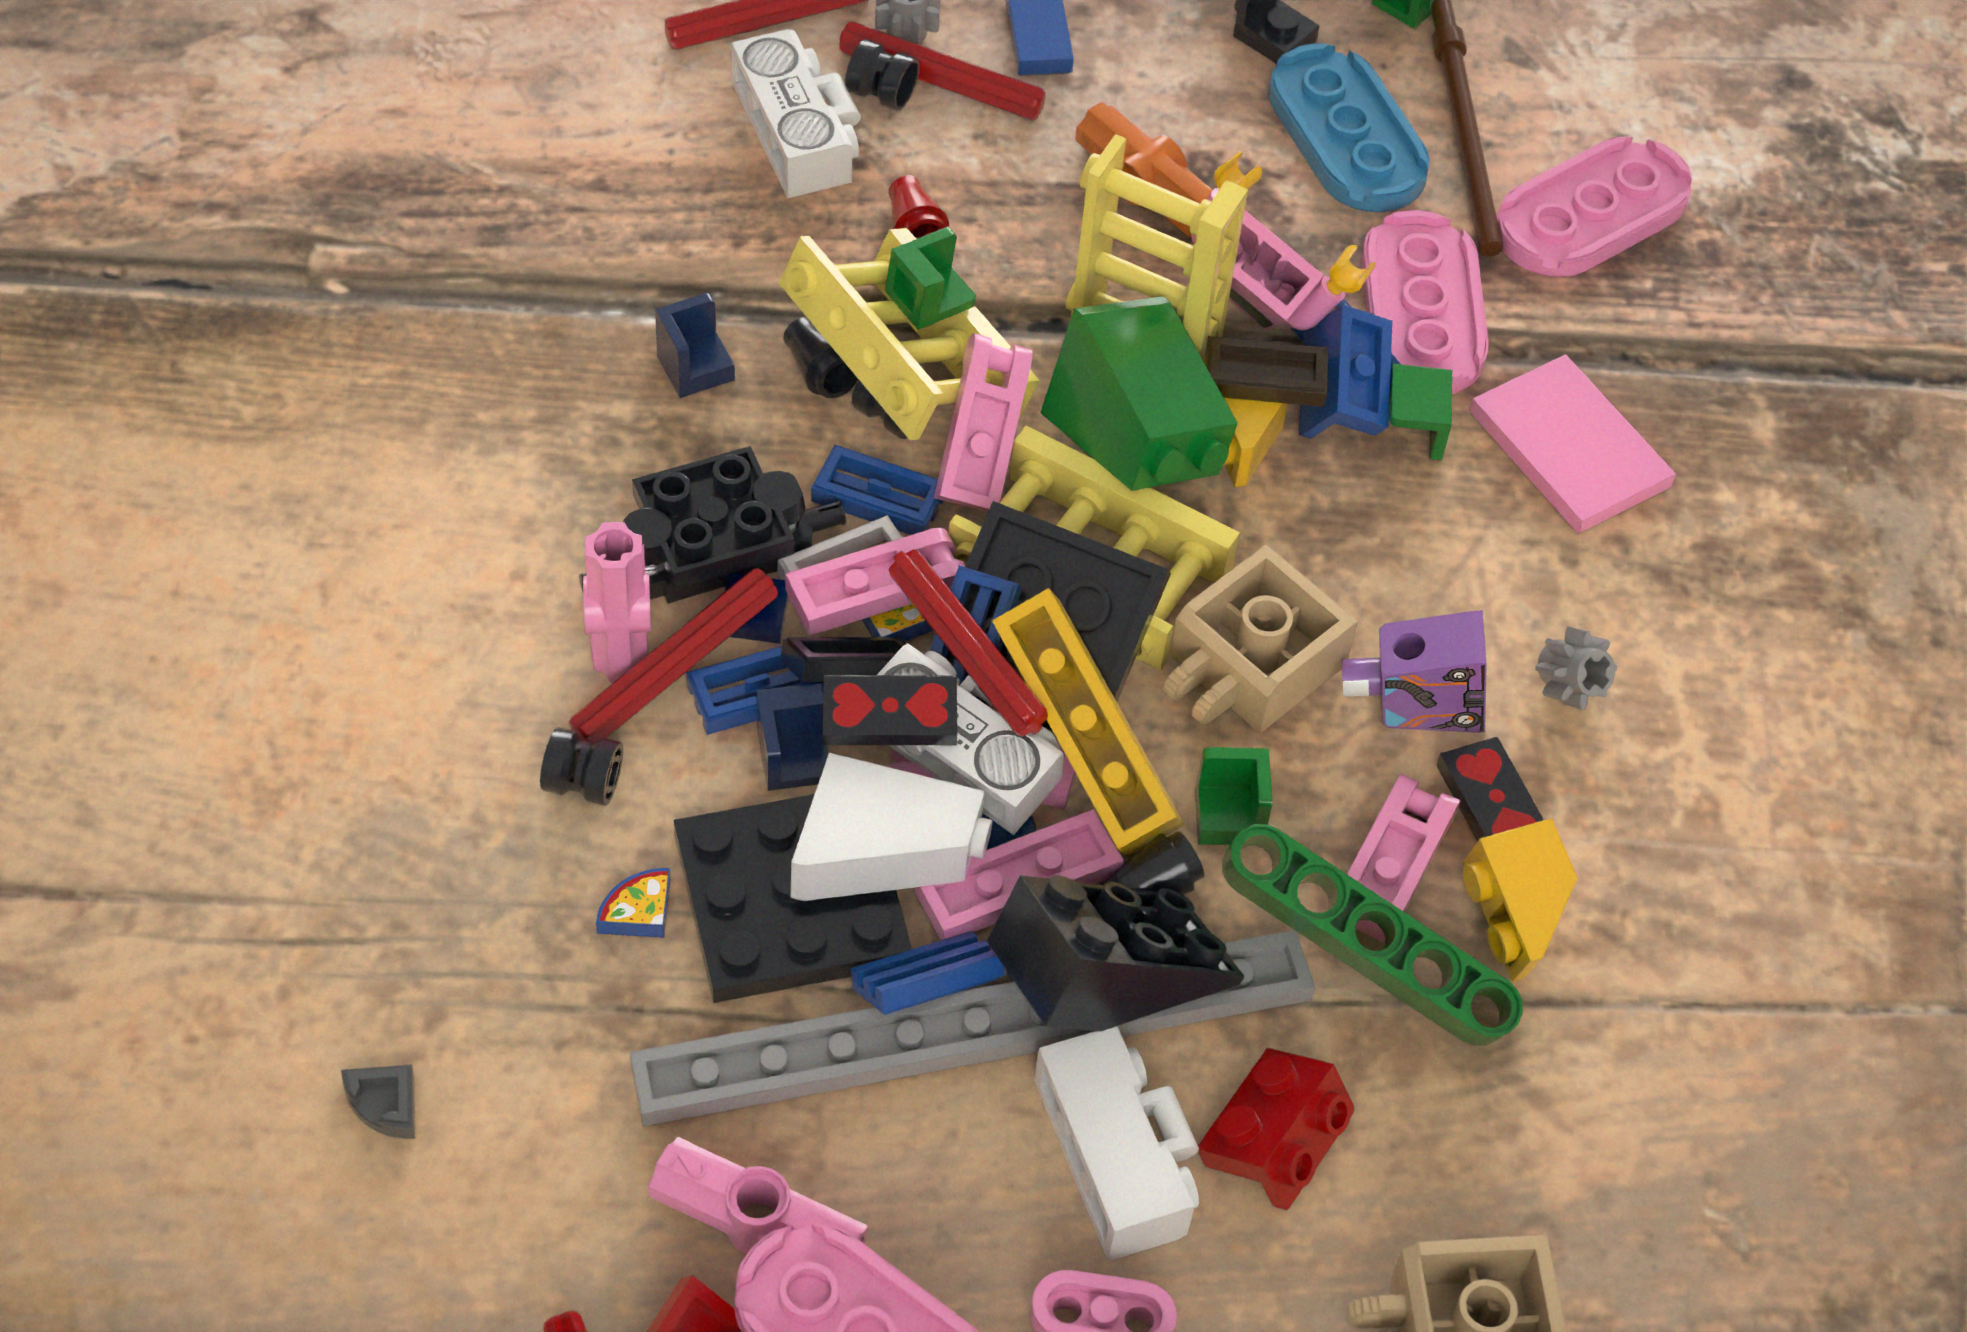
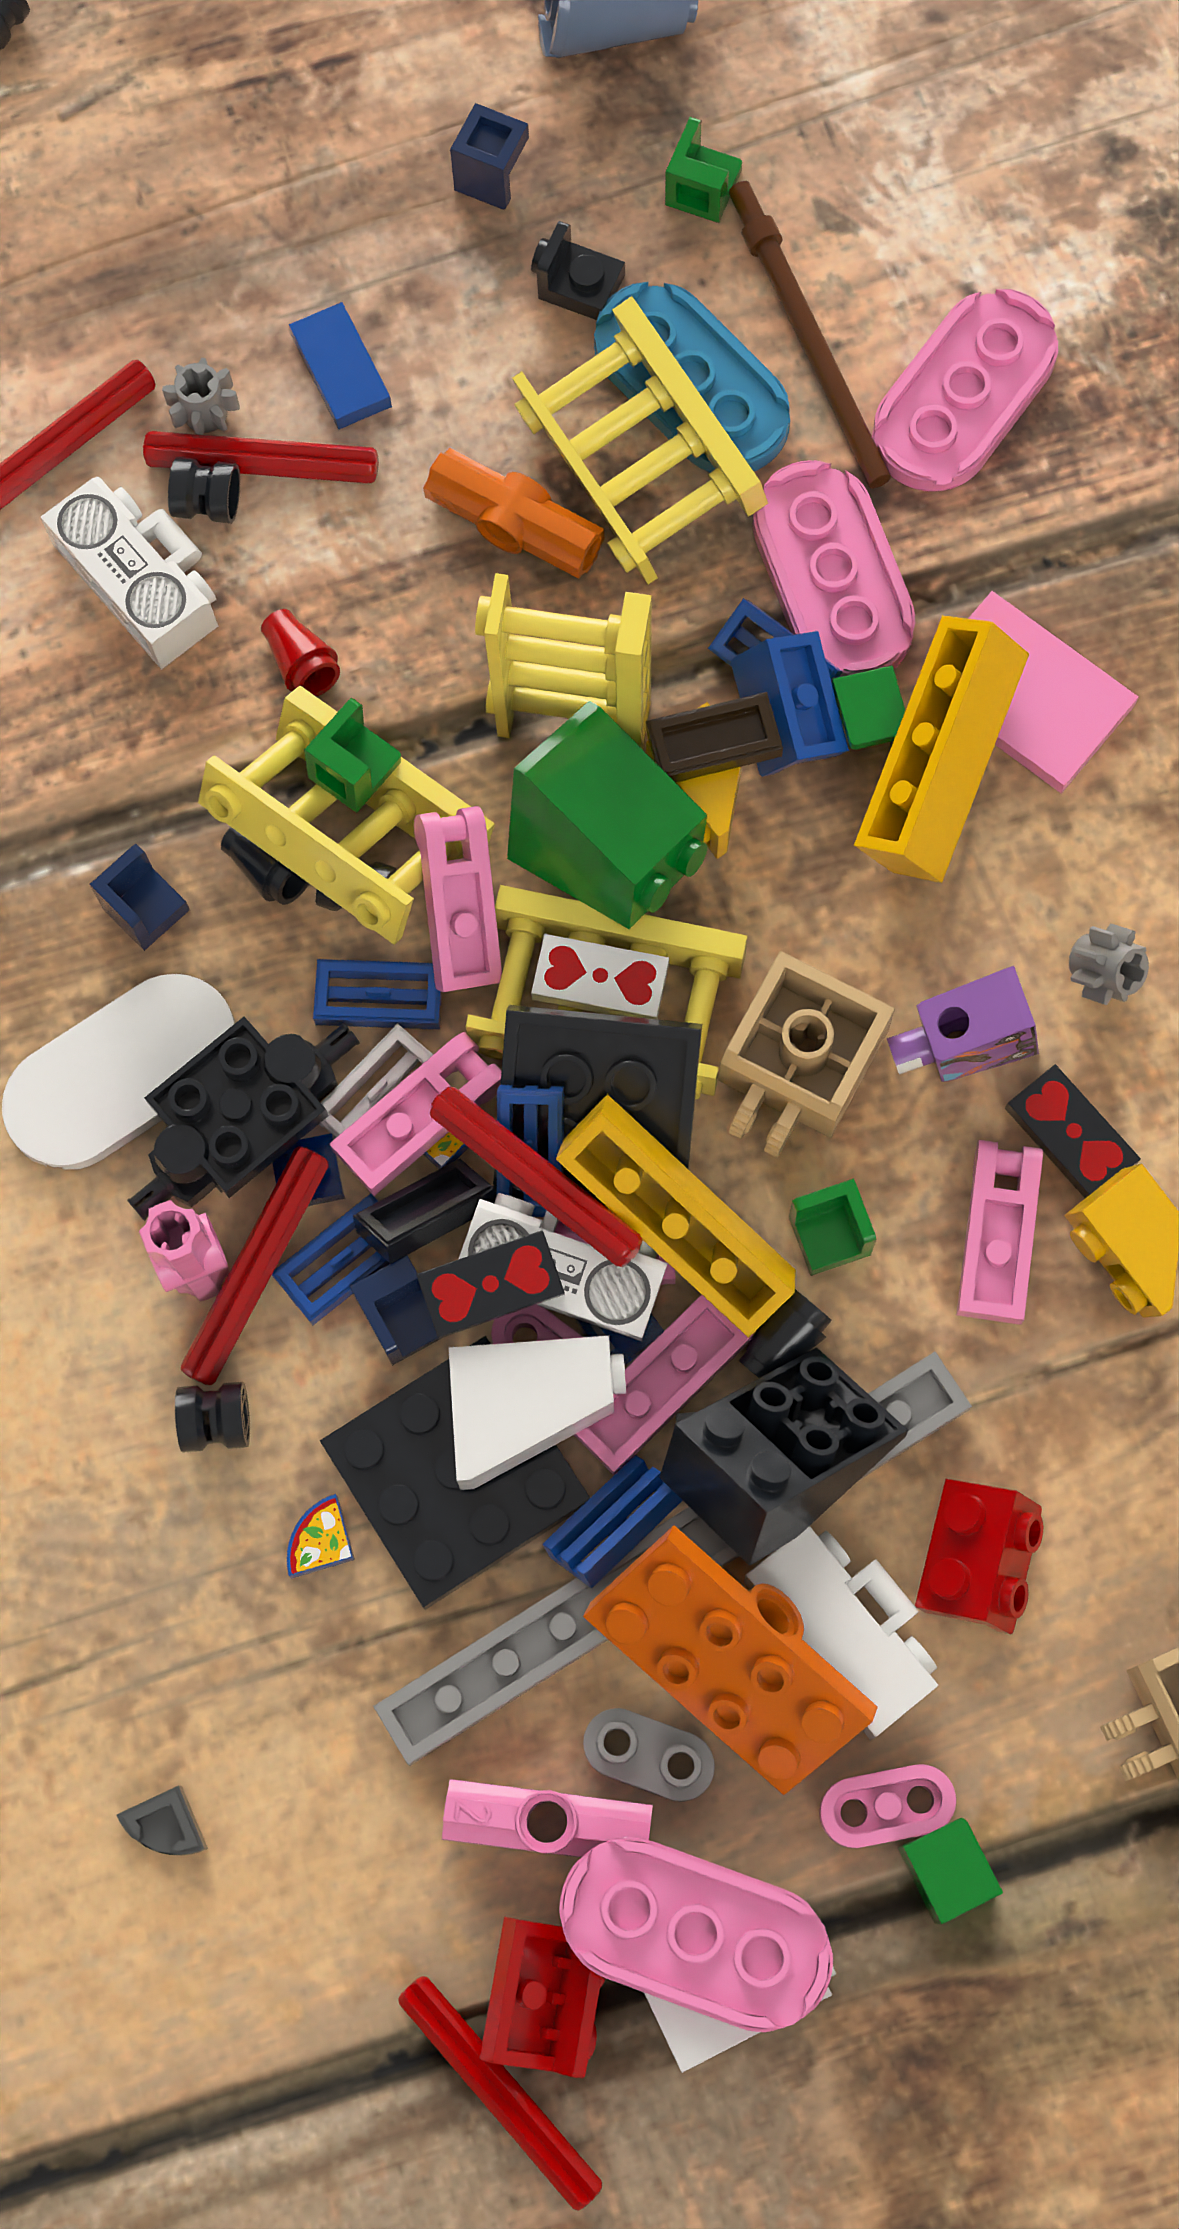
camera: 10 degrees left, 20 degrees up
(583, 477) = (89, 1084): none -> white tile
(877, 1194) = (648, 1755): none -> light grey plate
(996, 1110) = (731, 1659): none -> orange plate
(1092, 516) = (599, 978): none -> white tile
(1272, 279) = (679, 626): bright pink torso -> none
(1322, 112) = (696, 435): none -> light yellow fence
(1403, 934) = (1037, 1357): green beam -> none
(1474, 445) = (942, 748): none -> yellow brick

